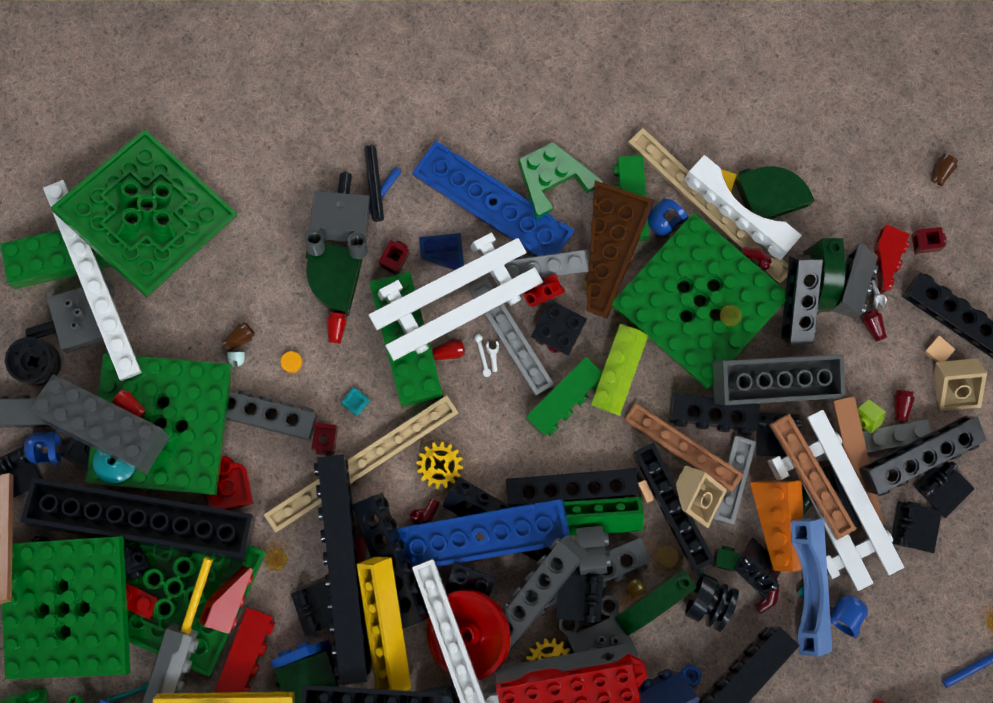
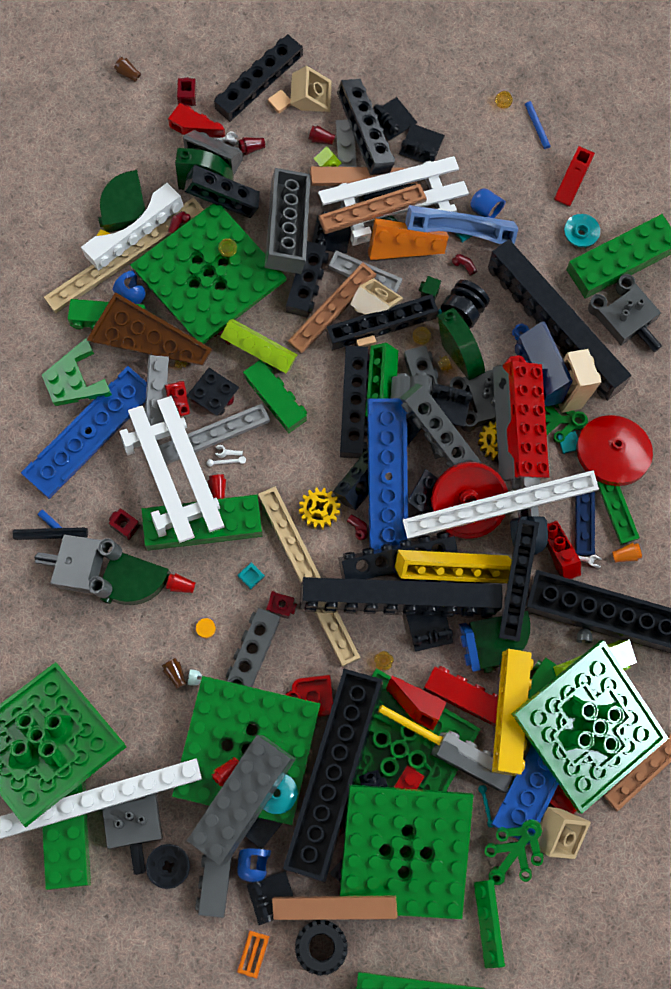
camera: 80 degrees left, 5 degrees down
(443, 250) = (124, 482): clear blue wing -> none
(757, 568) = (441, 265): black hinge -> none

